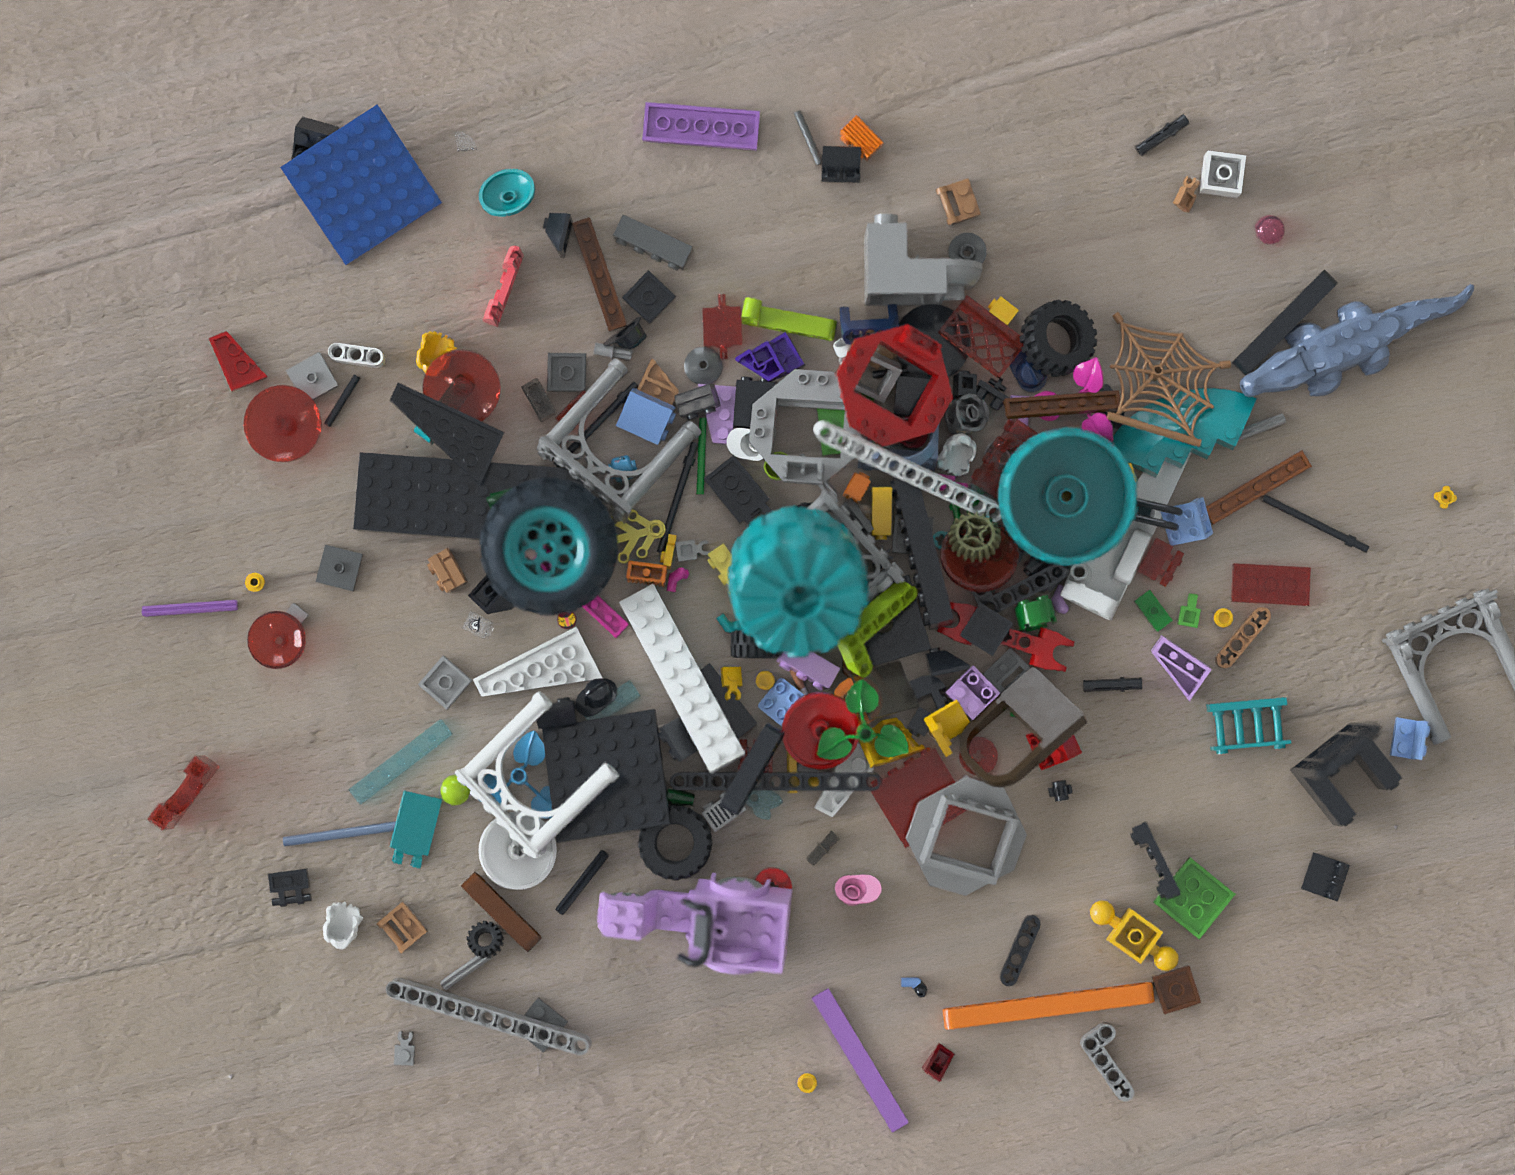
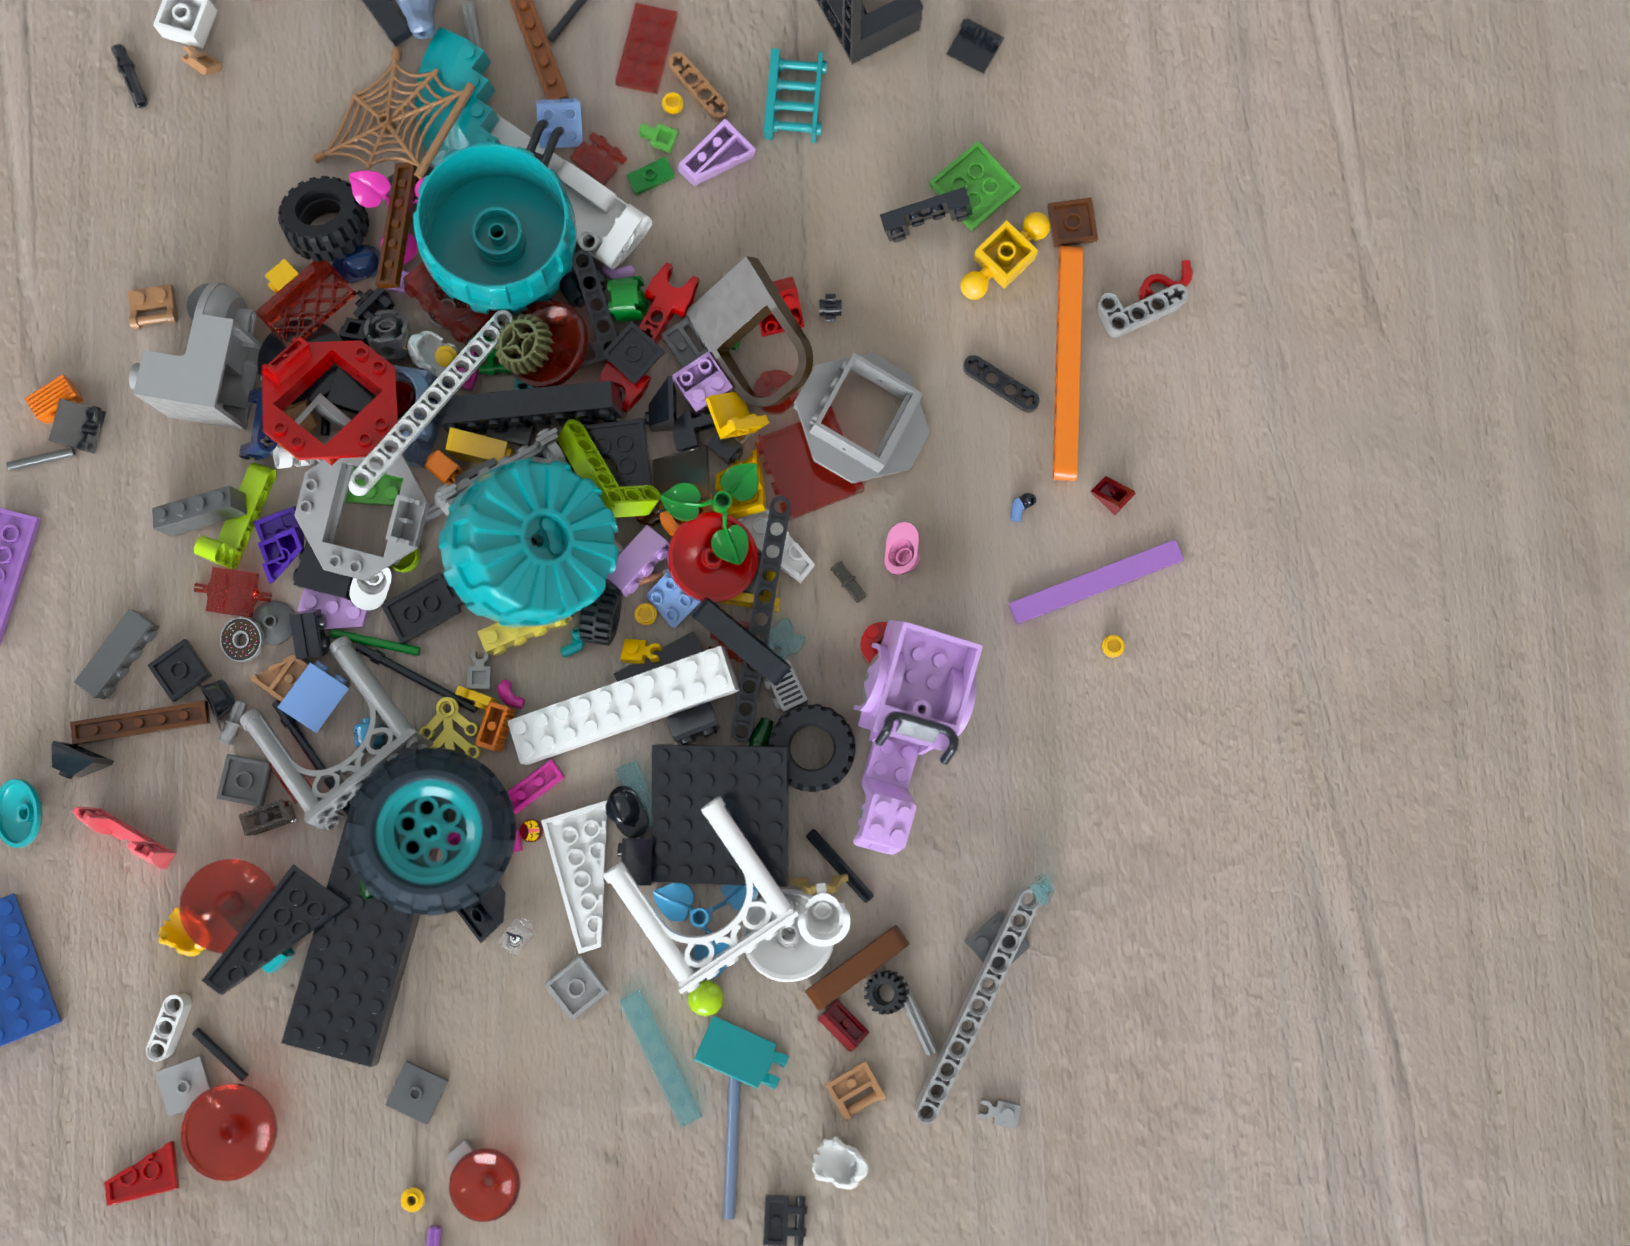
camera: 75 degrees left, 5 degrees down
(447, 571) = (445, 961): medium nougat brick -> none
(452, 908) = (843, 1025): none -> dark red slope
(535, 878) = (823, 918): none -> white helmet
(590, 1055) = (1042, 889): none -> clear light blue tile
(679, 334) = (230, 639): none -> tile
(785, 287) = (199, 511): none -> dark grey brick
(956, 467) = (445, 355): none -> yellow plate
(1112, 684) = (724, 224): black pin -> none
(1143, 1097) = (1187, 274): none -> red animal

